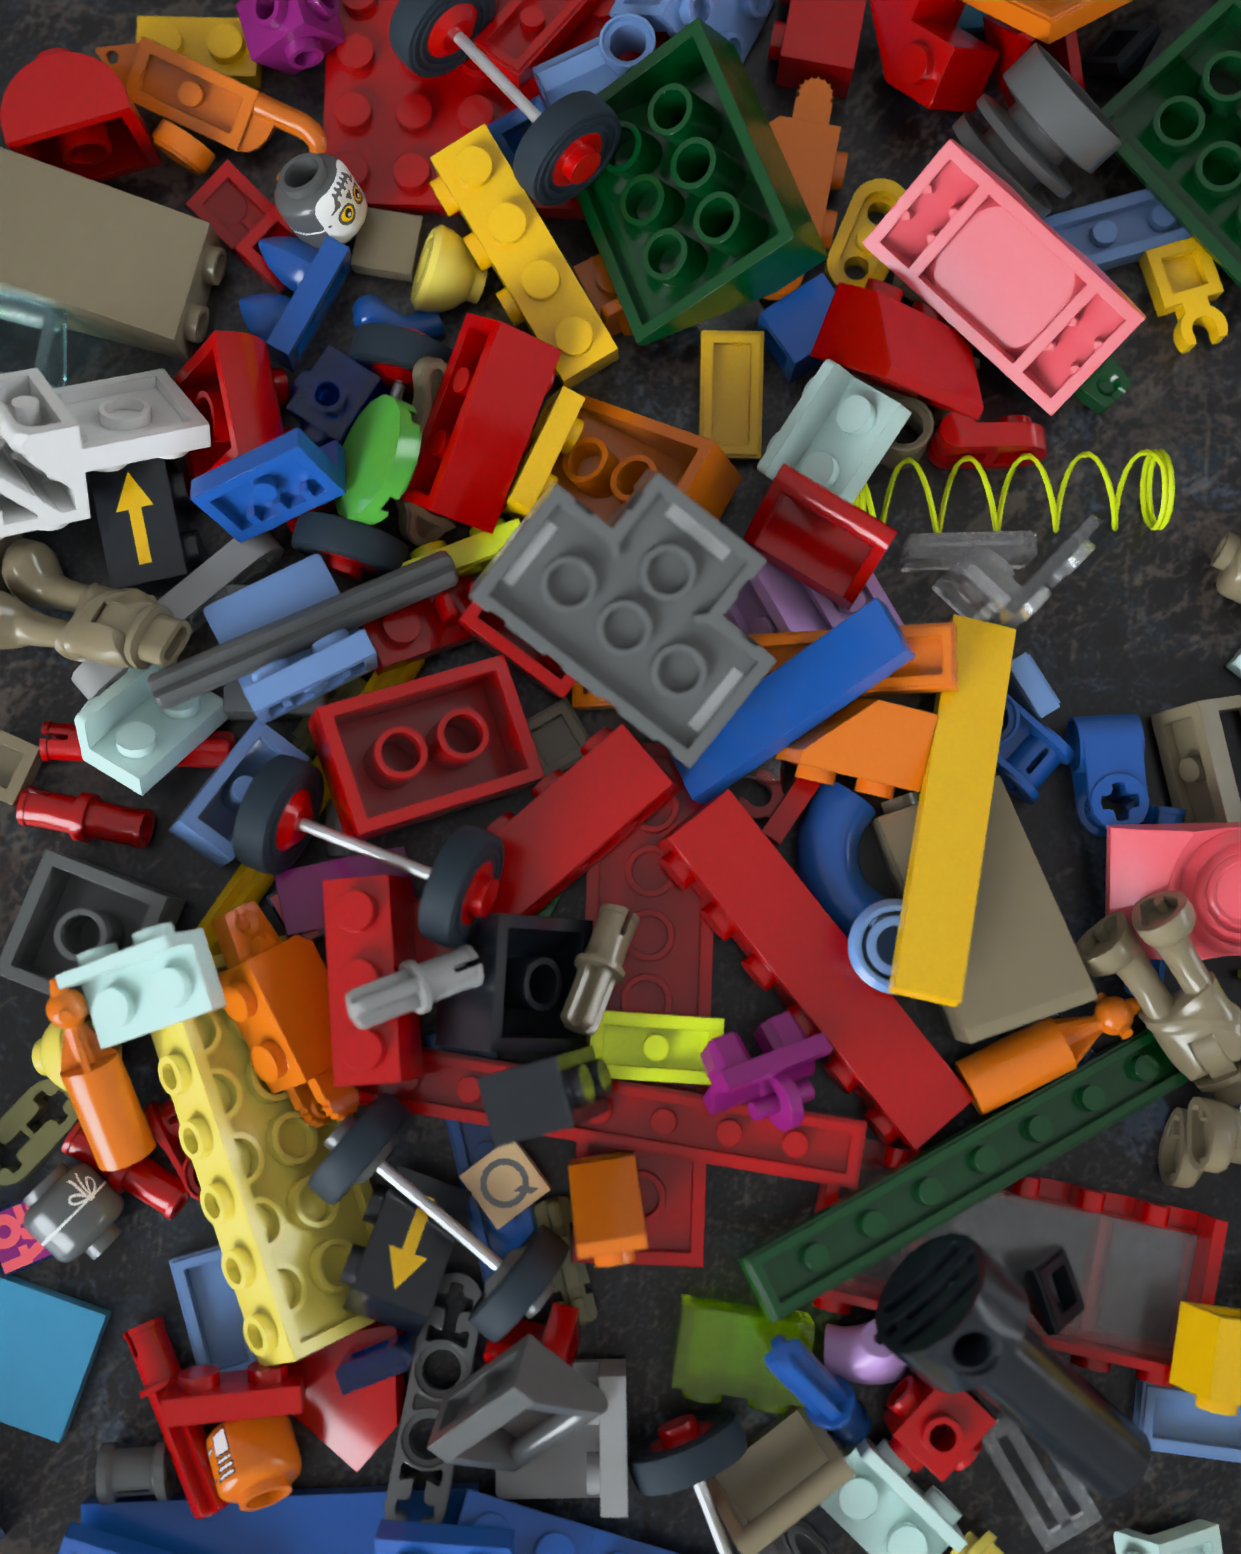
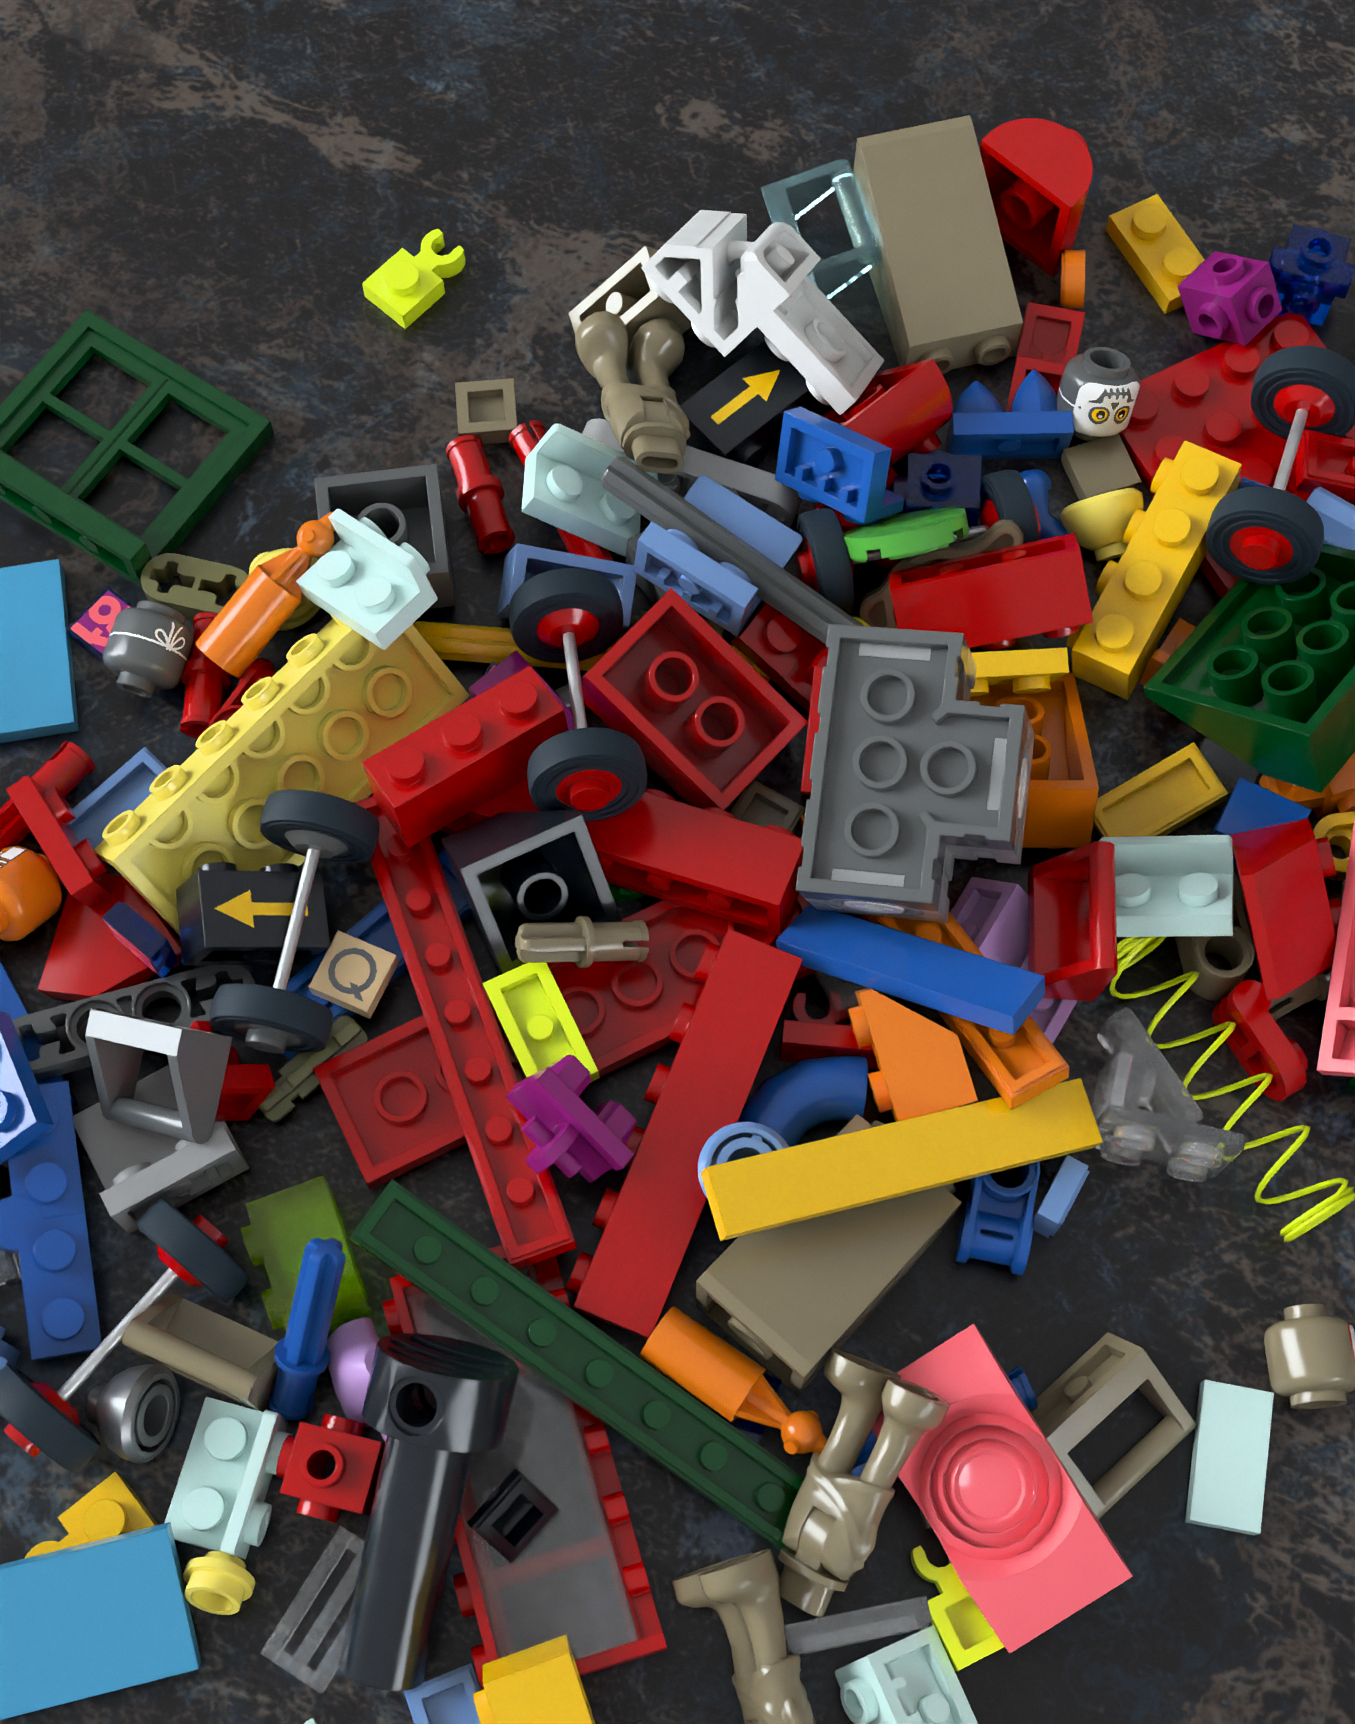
camera: 60 degrees right, 15 degrees down
(206, 98) = (1124, 272): orange plate -> none
(283, 1011) = (410, 691): orange hinge -> none
(413, 987) = (479, 773): light grey axle -> none
(545, 1095) = (447, 936): black brick -> none
(607, 1208) = (377, 1054): orange slope -> none
(1109, 764) = (1034, 1308): blue piece -> none

